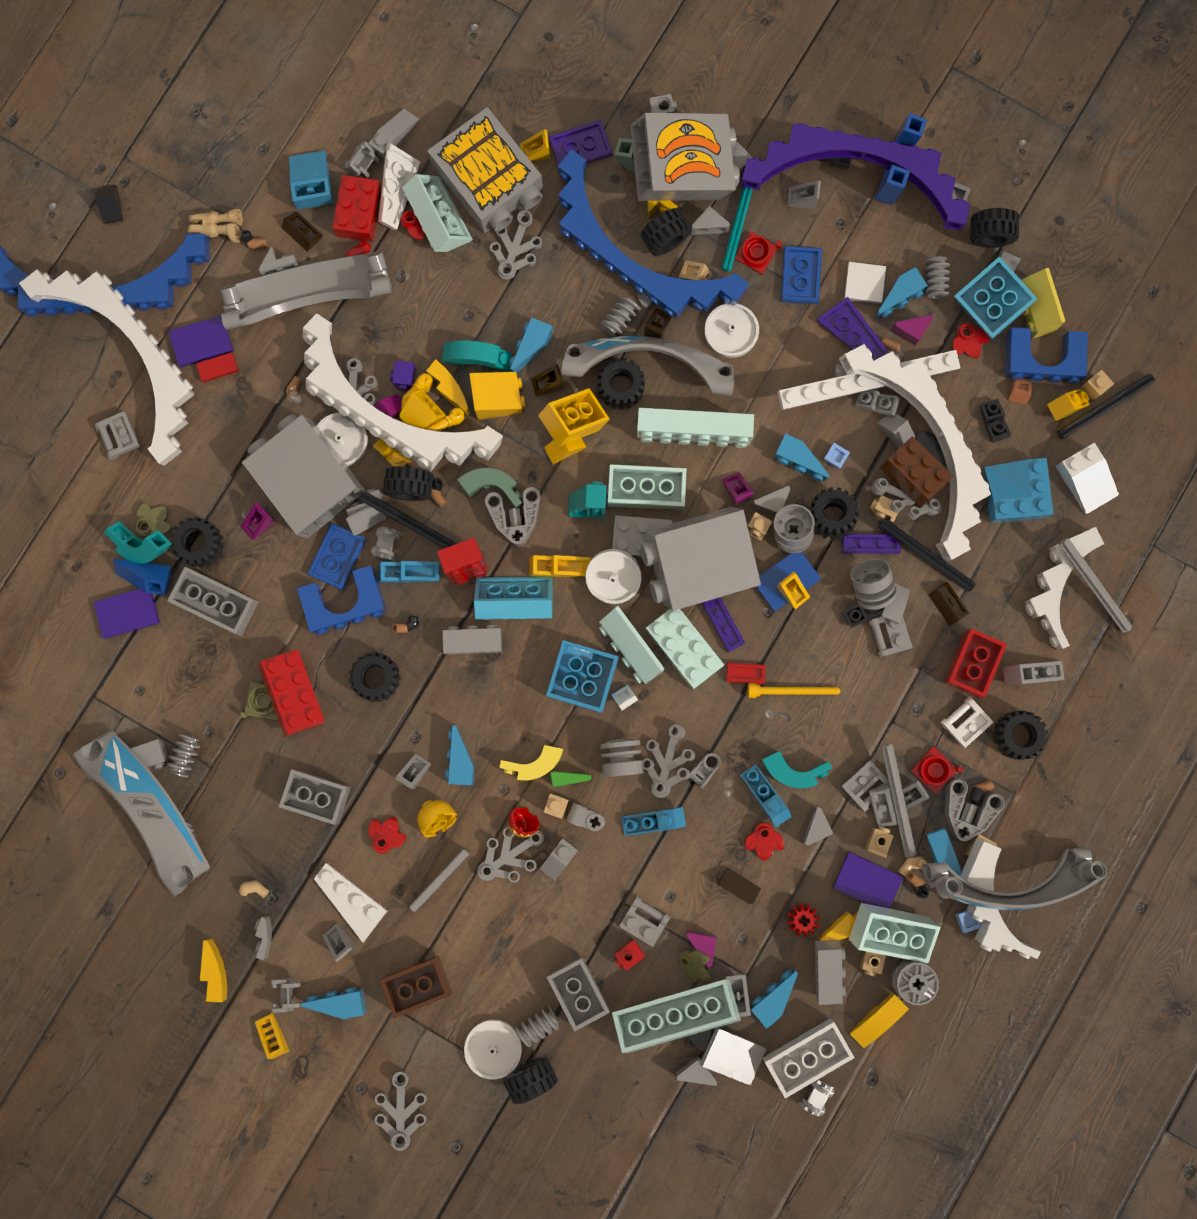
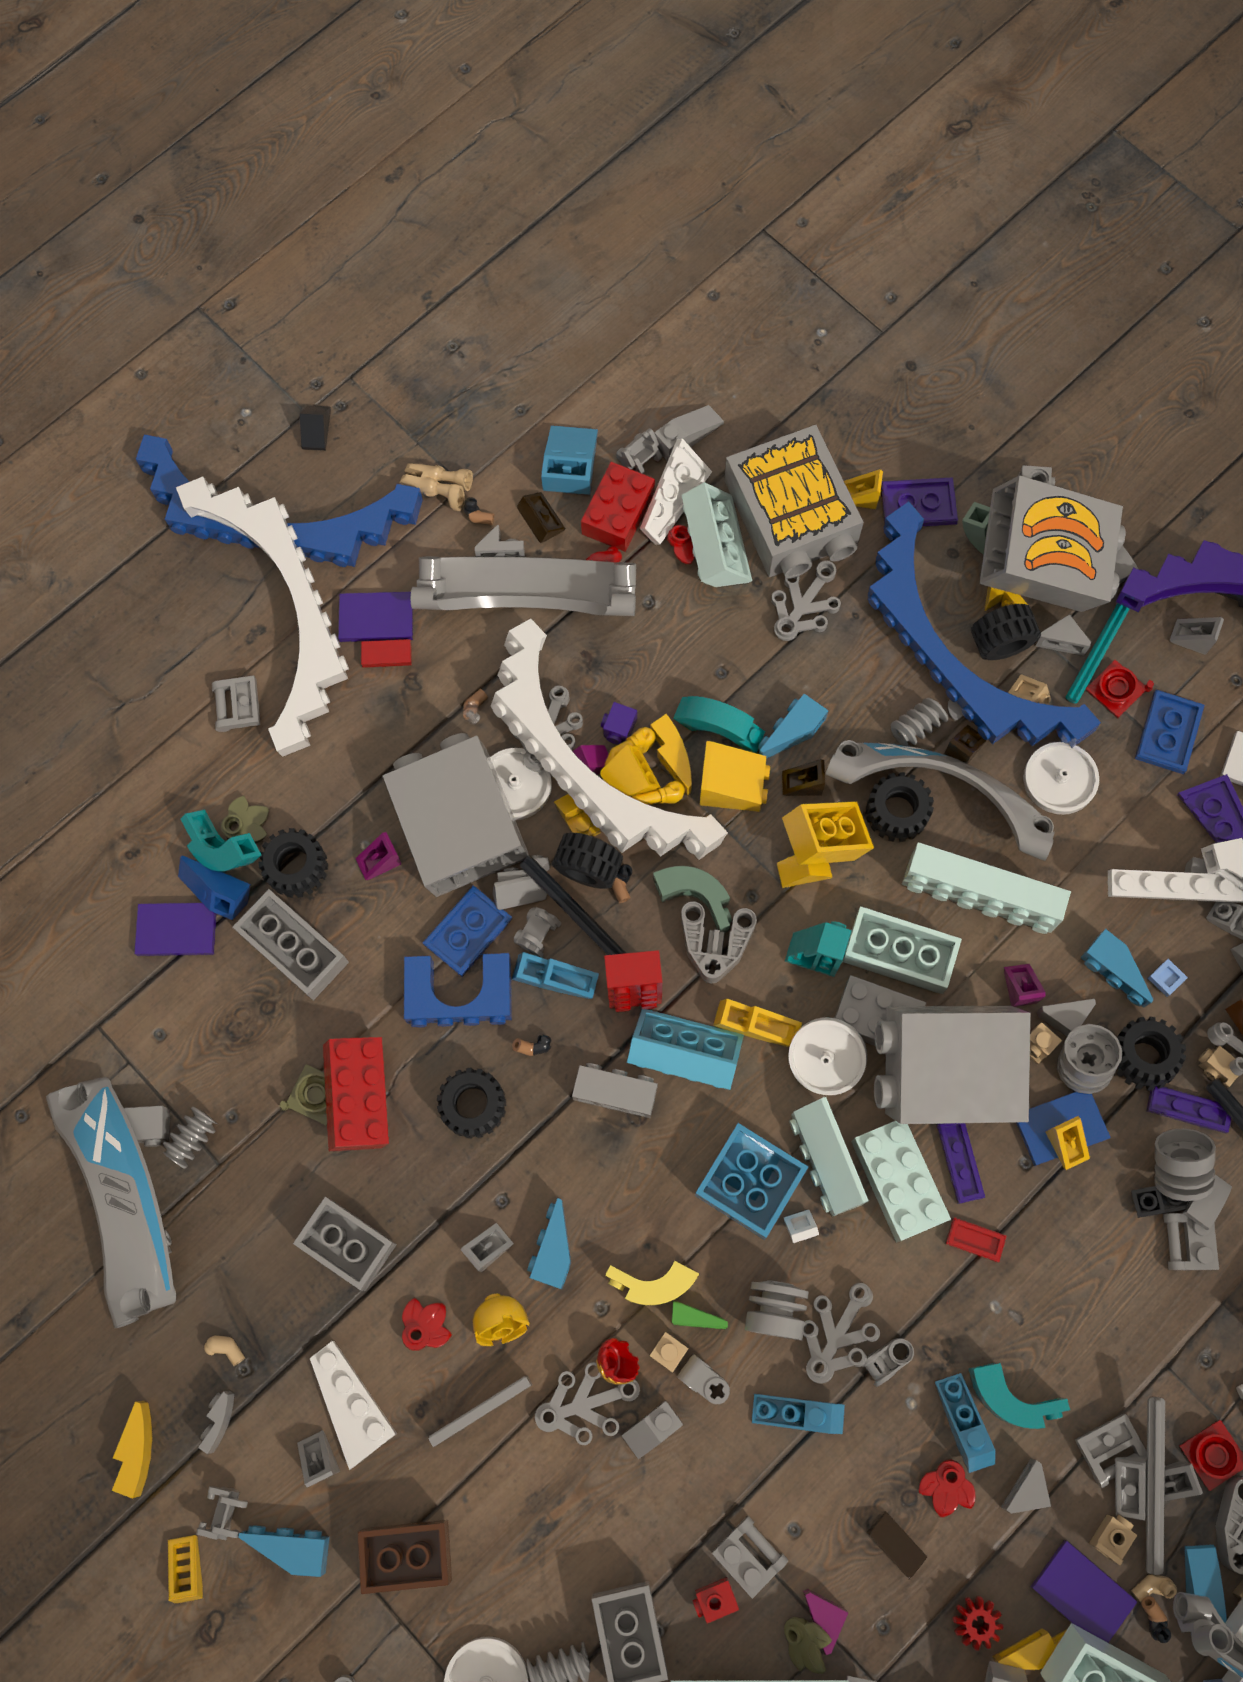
camera: 15 degrees right, 10 degrees down
(755, 690) = (984, 1268): yellow piece -> none

